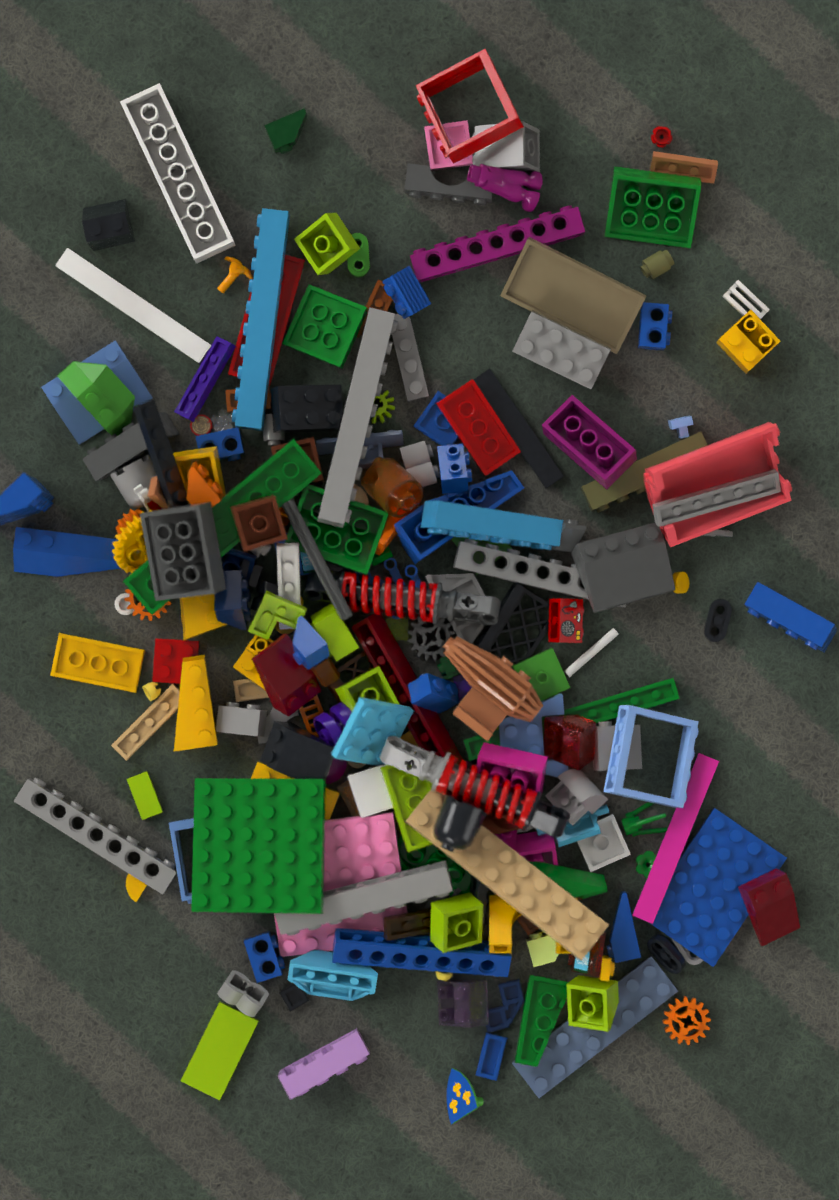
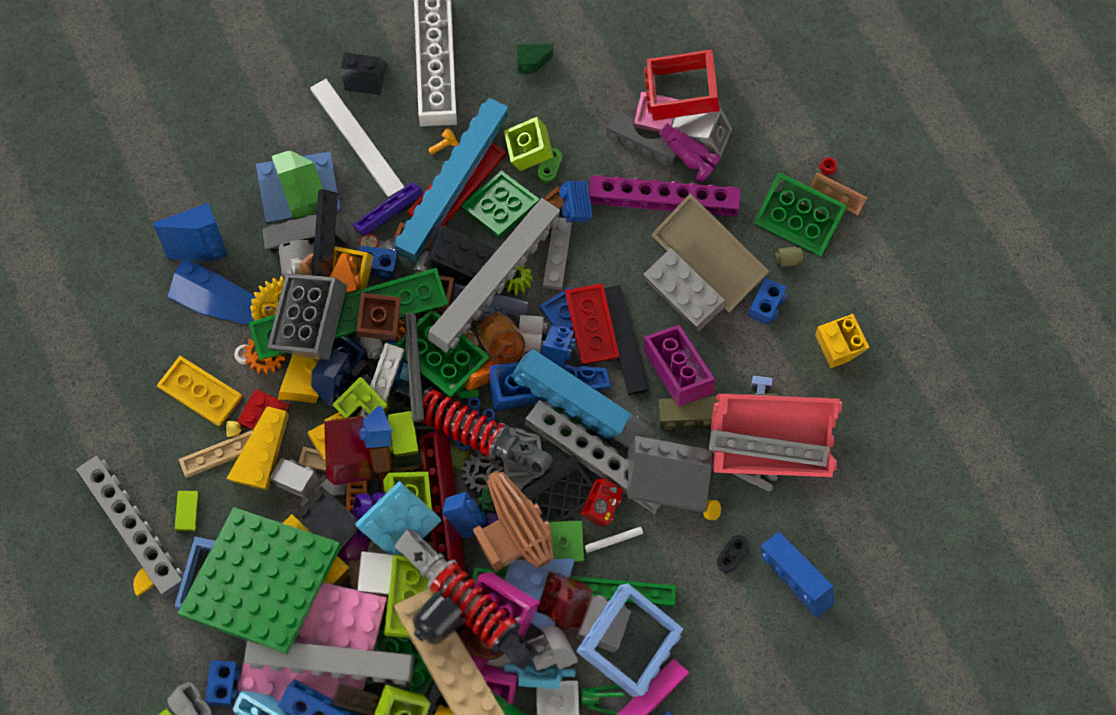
camera: 20 degrees right, 20 degrees down
(747, 292) = (837, 302): white tile -> none

